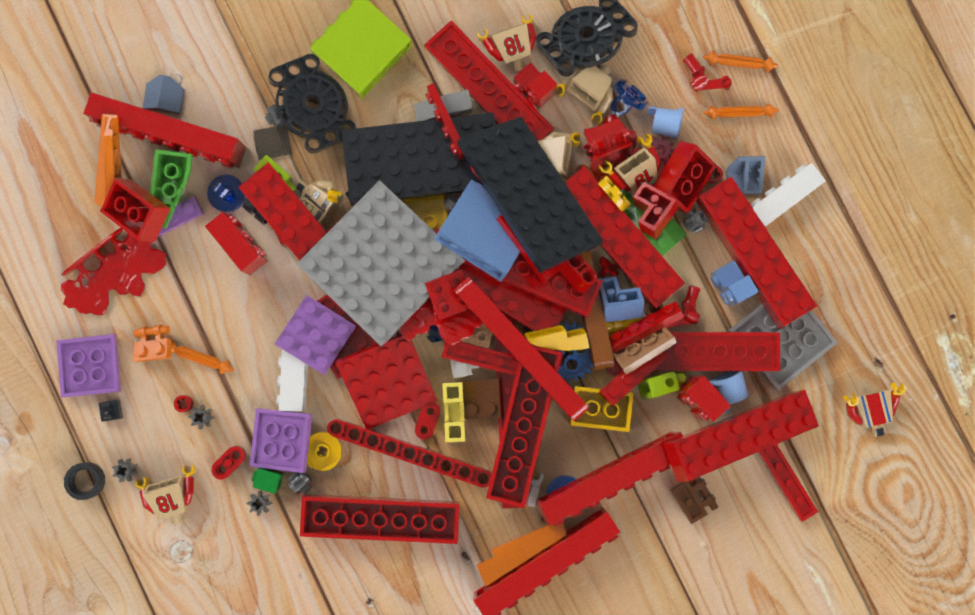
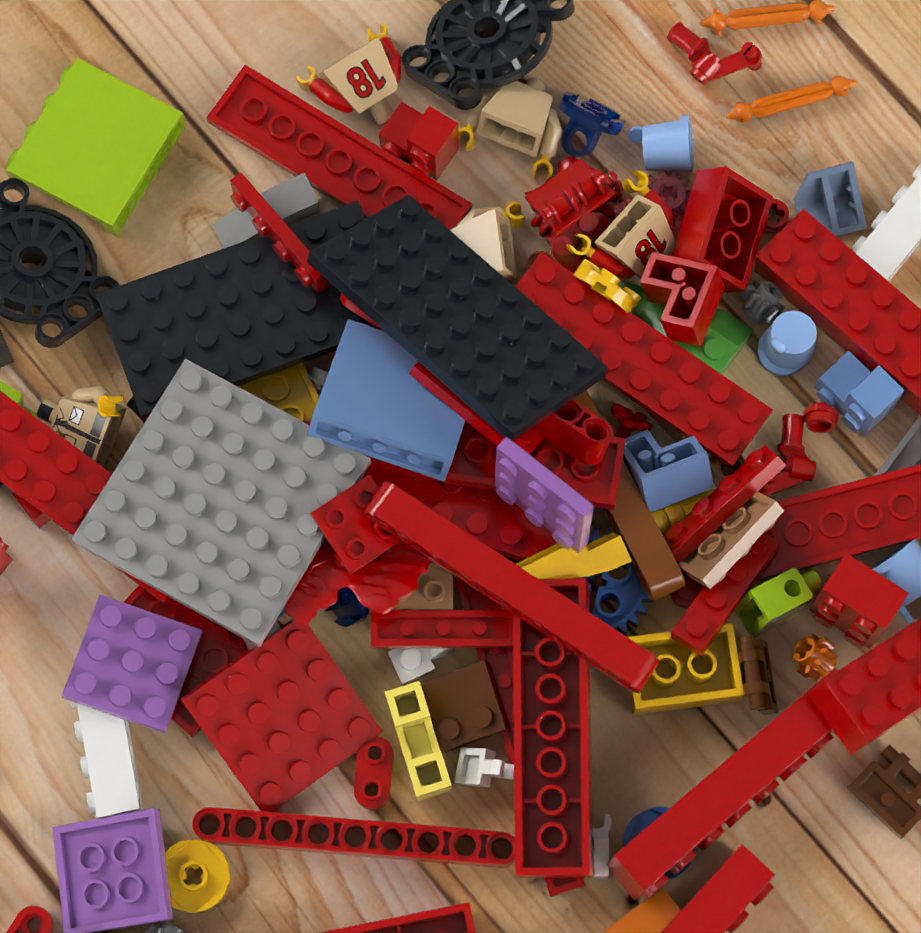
camera: 15 degrees left, 10 degrees down
(482, 432) = (478, 766): none -> white plate
(549, 307) = (542, 496): none -> medium lavender plate
(639, 424) = (758, 675): none -> reddish brown plate
(671, 418) = (814, 657): none -> orange gear
(702, 247) = (788, 344): none -> light blue hat
(709, 291) = (821, 417): none -> red plate

